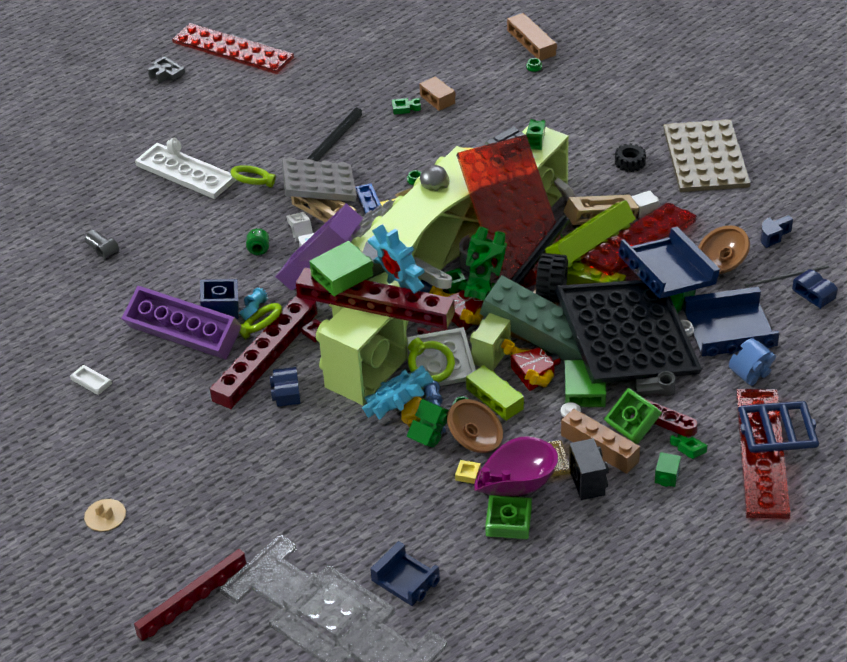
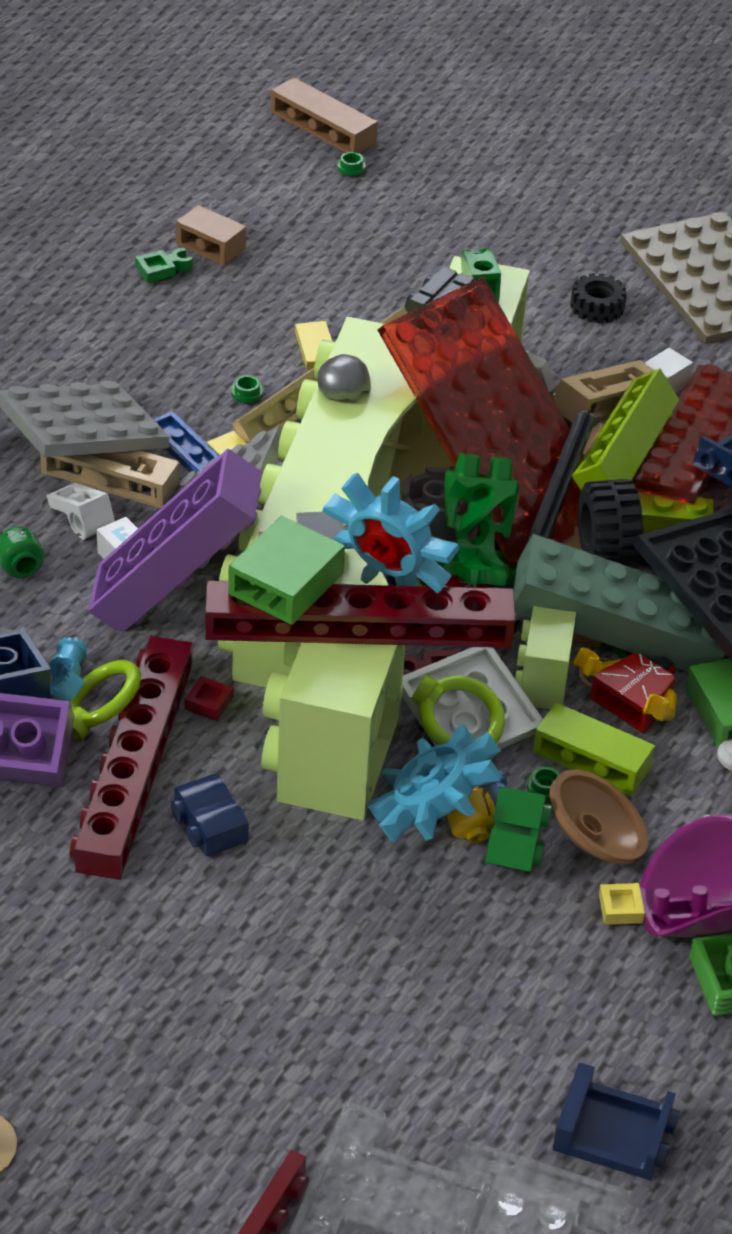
camera: 25 degrees left, 0 degrees up
(336, 134) = (61, 334): black axle -> none

